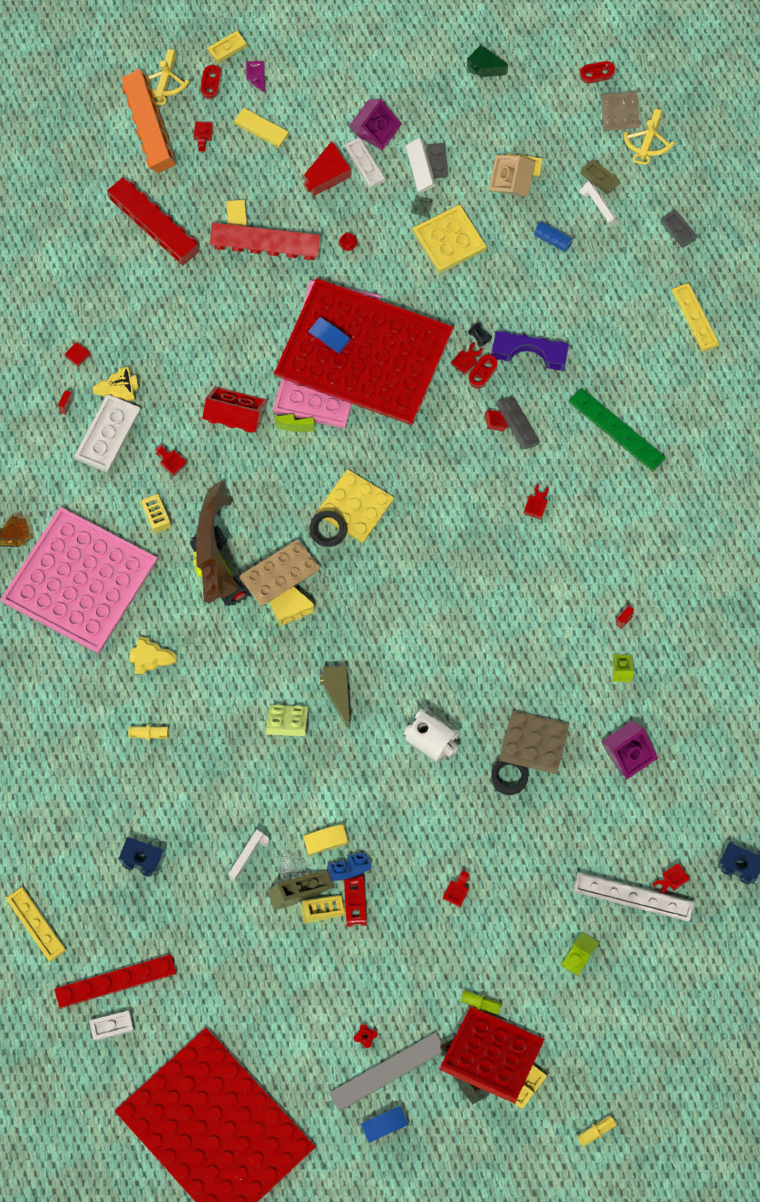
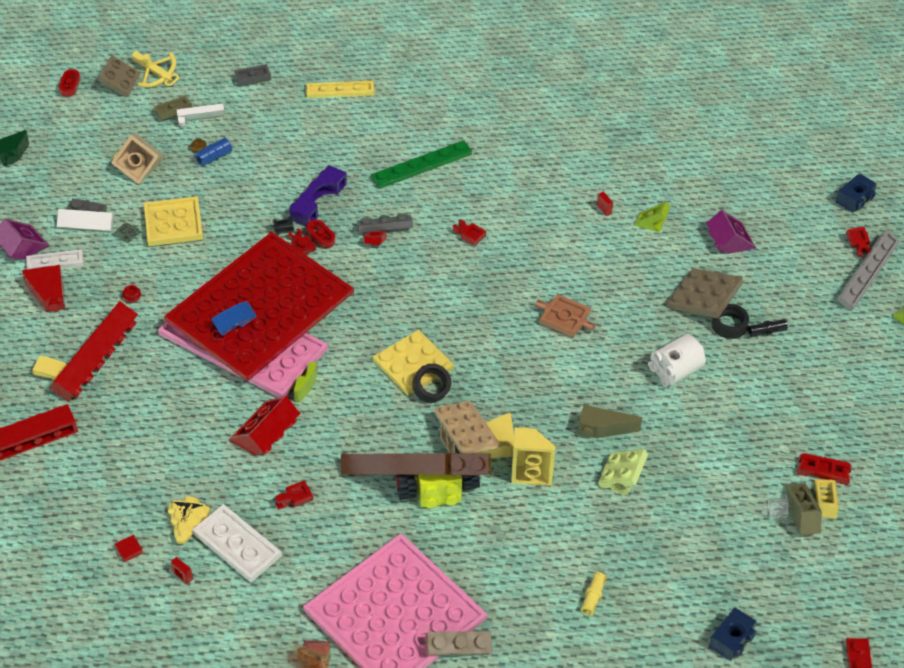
camera: 75 degrees left, 20 degrees down
(61, 637) = (458, 643): none -> dark tan plate
(149, 656) = (508, 571): light yellow rock -> none
(159, 526) = (355, 530): light yellow slope -> none
(248, 852) = (756, 542): white hinge -> none
(262, 633) = (532, 458): none -> light yellow slope
(326, 839) = (755, 474): light yellow slope -> none
(355, 865) = (790, 462): blue slope -> none
(457, 891) = (833, 388): red plate -> none
(460, 621) = (565, 315): none -> nougat plate
(515, 813) = (767, 327): none -> black pin
(559, 224) = (198, 144): none -> pearl gold plate

